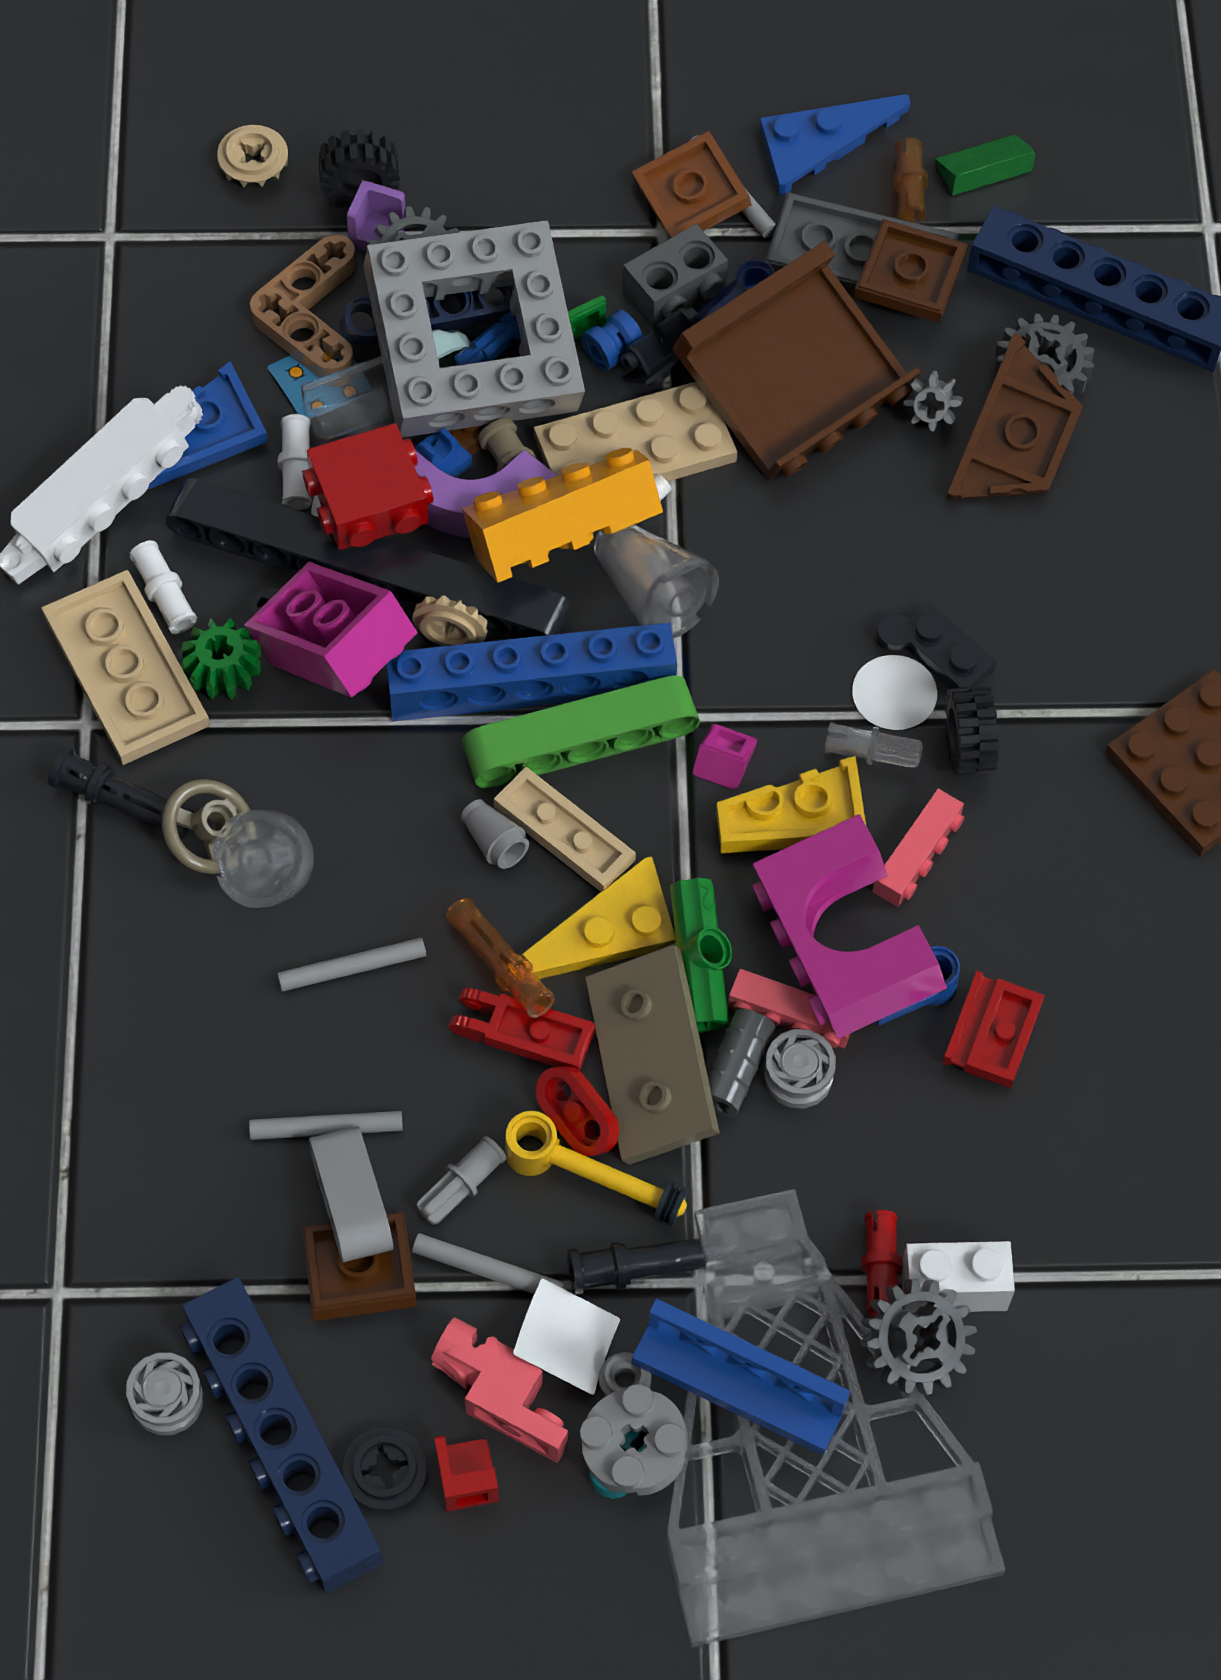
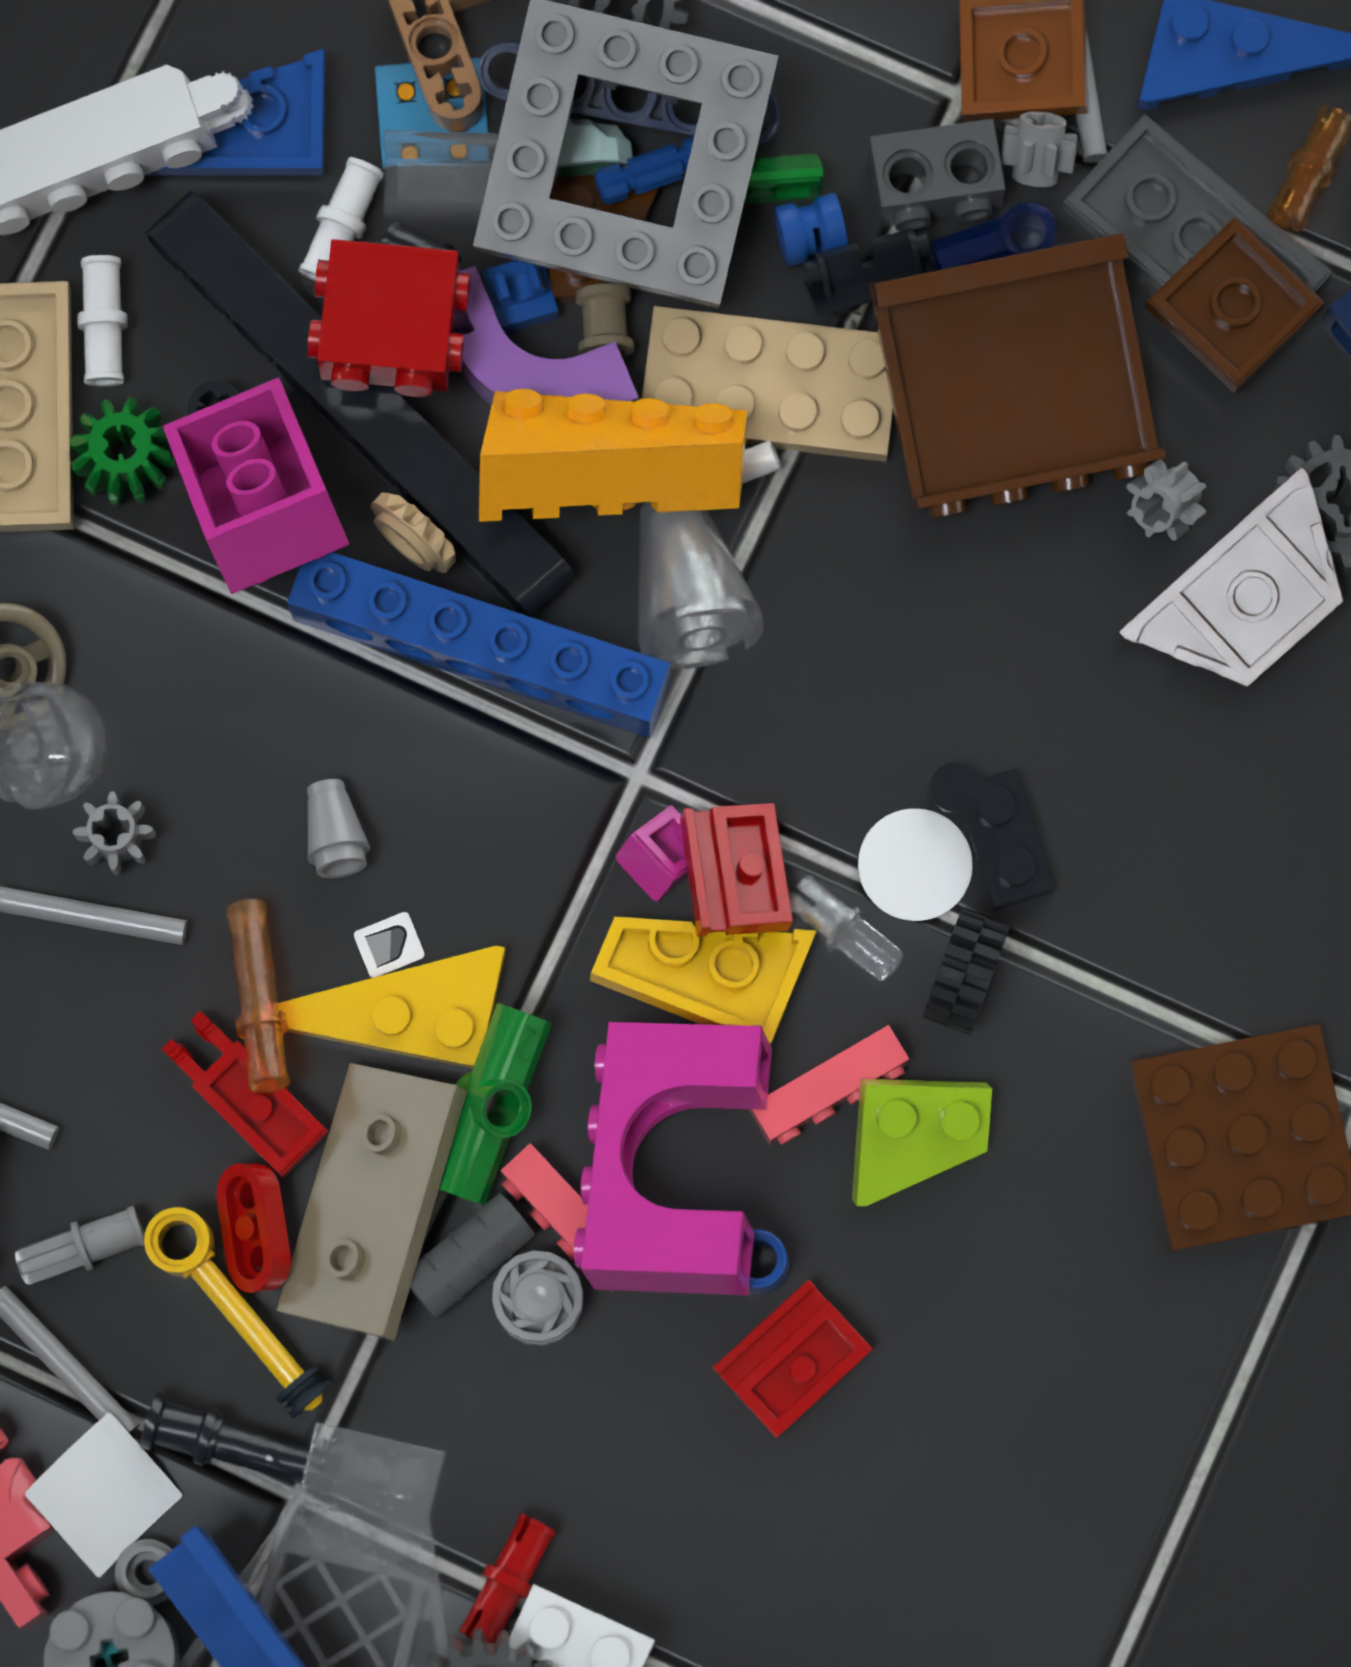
camera: 30 degrees right, 15 degrees up
(353, 893) = (101, 821): none -> light grey gear
(564, 829) = (419, 864): tan plate -> none
(569, 894) = (389, 944): none -> white sticker
(581, 731) = (502, 745): bright green beam -> none
(735, 234) = (1039, 149): none -> light grey gear
(782, 738) = (736, 869): none -> plate
(992, 850) = (915, 1132): none -> lime wing

